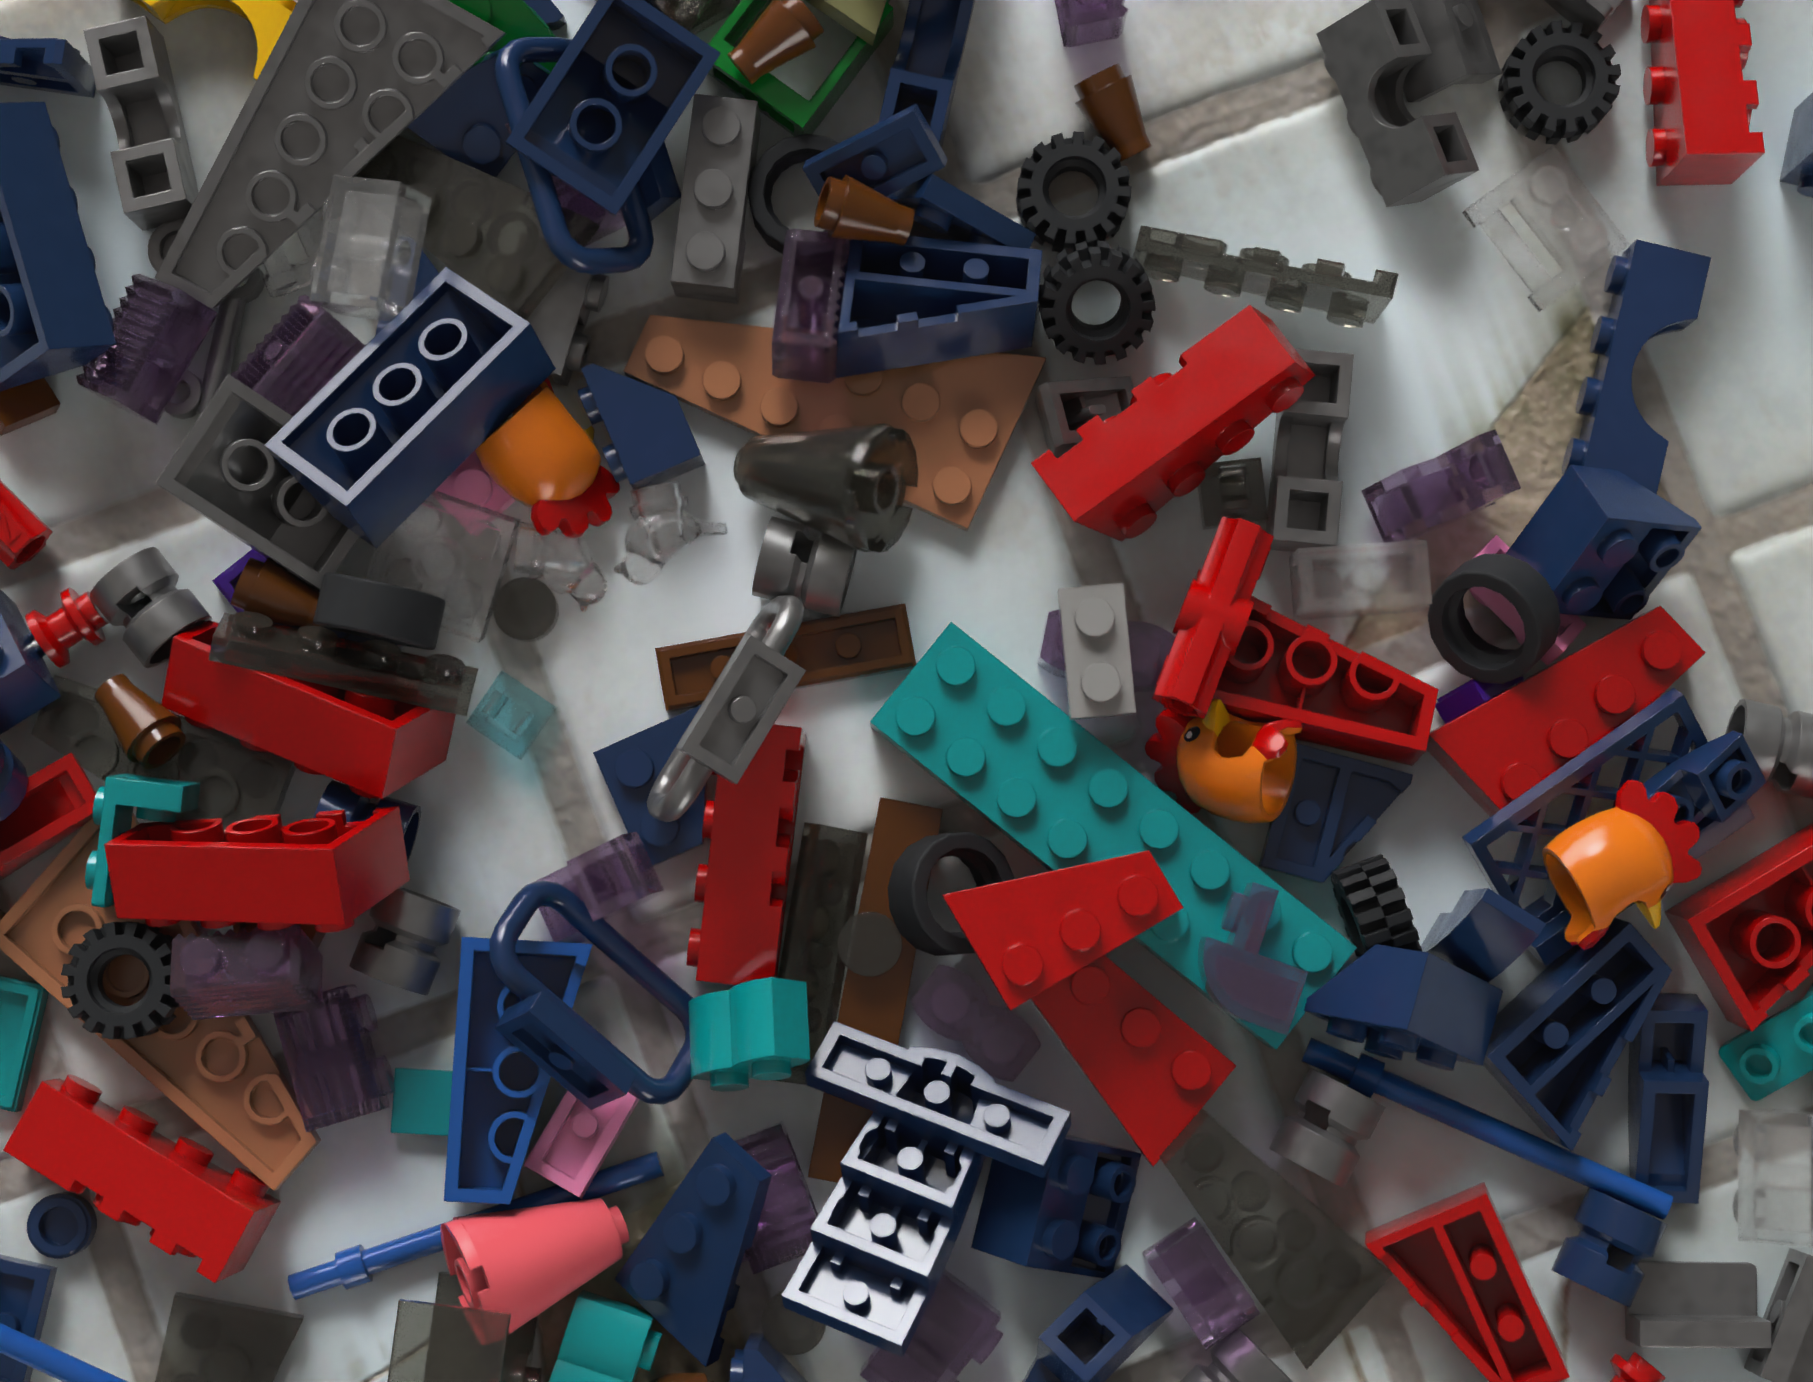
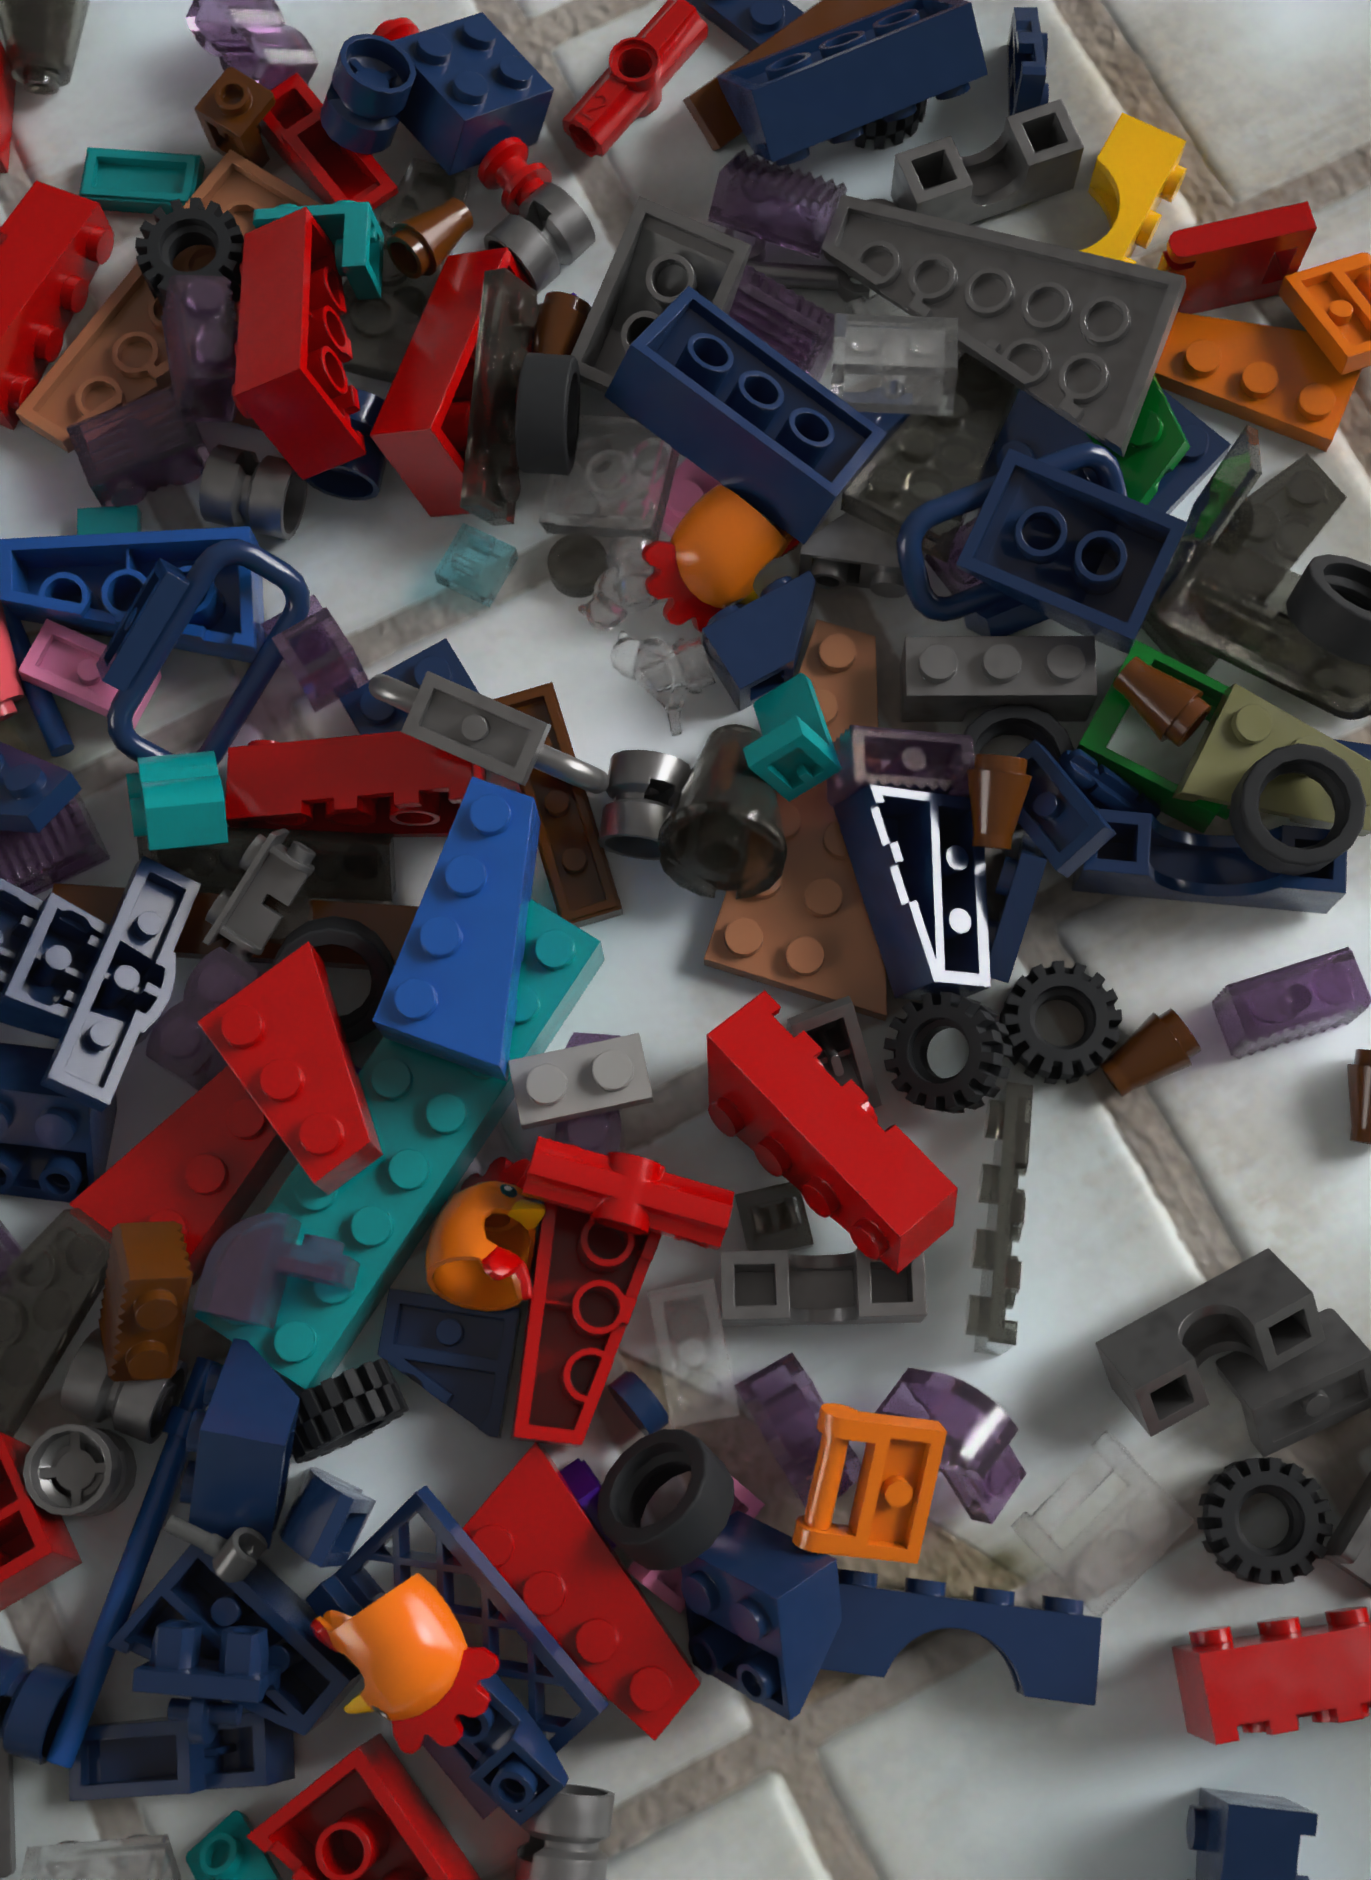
camera: 85 degrees right, 10 degrees down
(762, 404) = (795, 740): none -> teal bracket
(838, 943) = (269, 871): none -> flat silver hinge
(850, 107) = (1104, 786): none -> dark blue axle
(955, 743) = (467, 941): none -> blue wedge
(1263, 1090) = (145, 1300): none -> reddish brown brick
(1395, 638) = (638, 1403): none -> dark blue tile
(1404, 1174) = (79, 1470): none -> flat silver wheel
(1456, 350) = (977, 1440): none -> clear purple brick
(1510, 1023) = (232, 1557): none -> dark grey hand
(1514, 408) = (891, 1488): none -> orange plate
(1624, 1053) = (178, 1670): none -> dark blue hips

